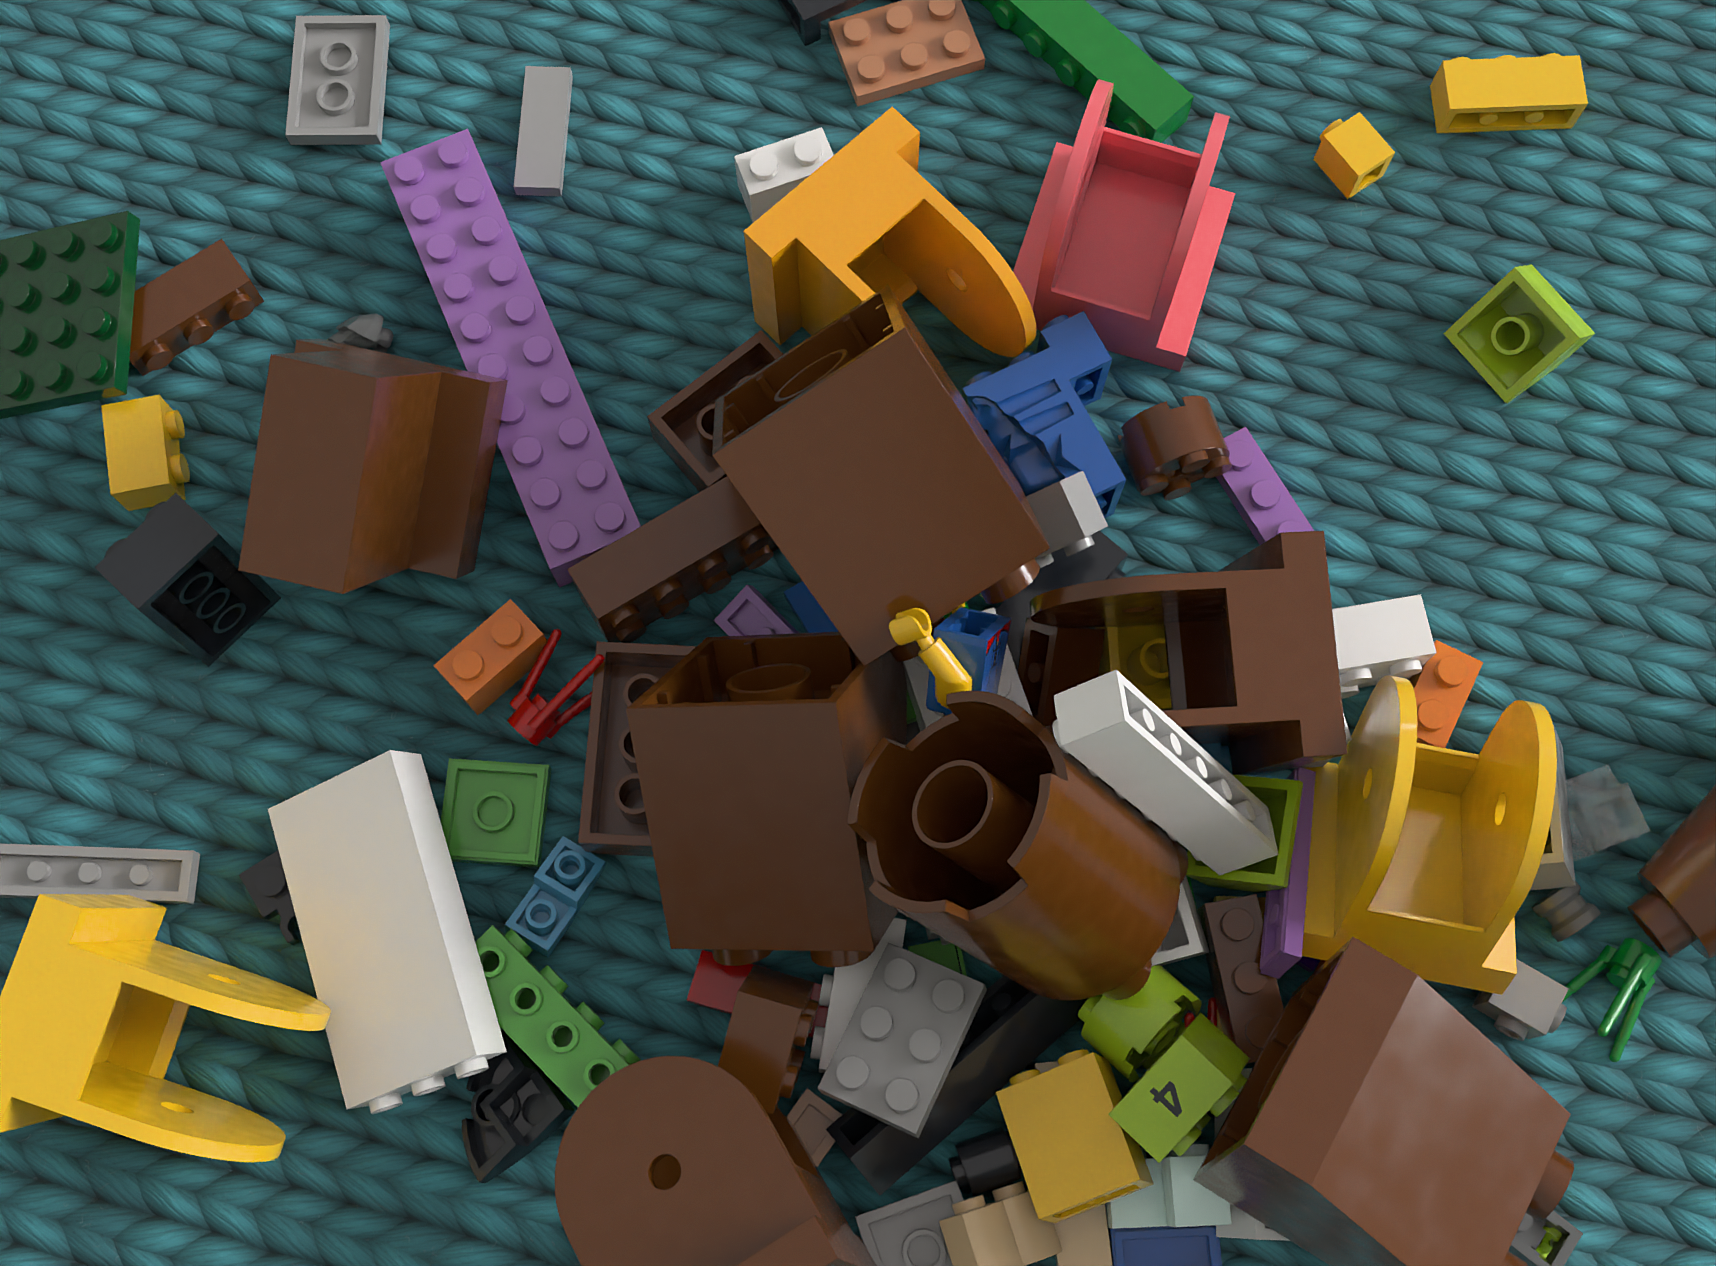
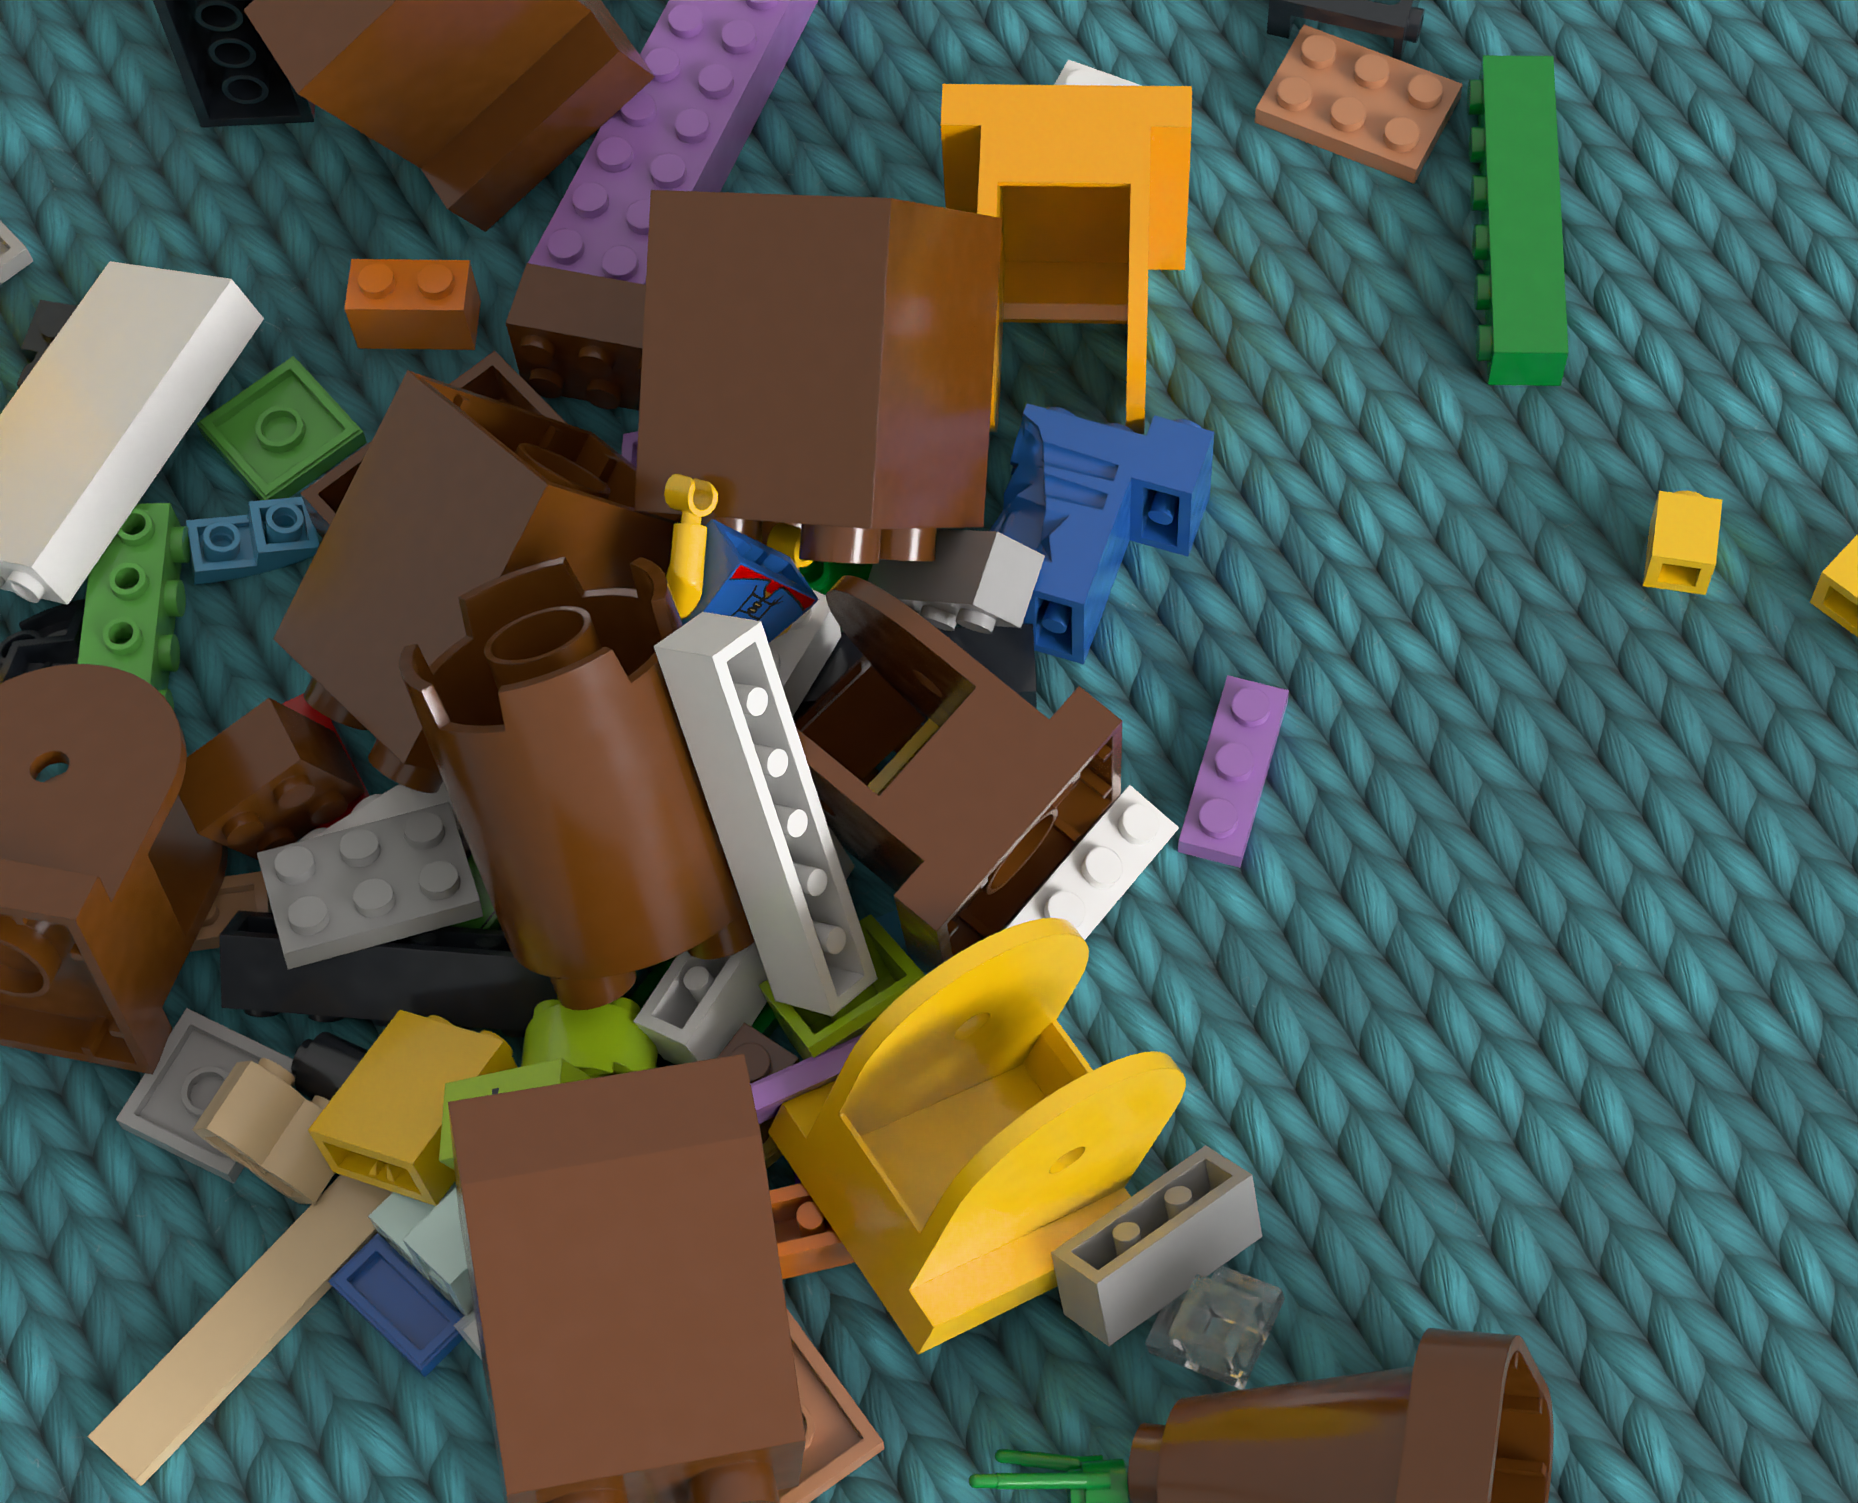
camera: 50 degrees right, 10 degrees down
(538, 716) = (383, 376): red plant -> none
(1126, 236) = (1347, 412): coral piece -> none
(1174, 447) = (1184, 636): reddish brown brick -> none
(1381, 641) = (1161, 963): white brick -> none
(1442, 693) = (1211, 1061): orange brick -> none
(1518, 332) = (1666, 839): lime slope -> none
(1527, 1006) = (954, 1410): light grey brick -> none
(1566, 911) = (1091, 1377): dark grey wheel -> none

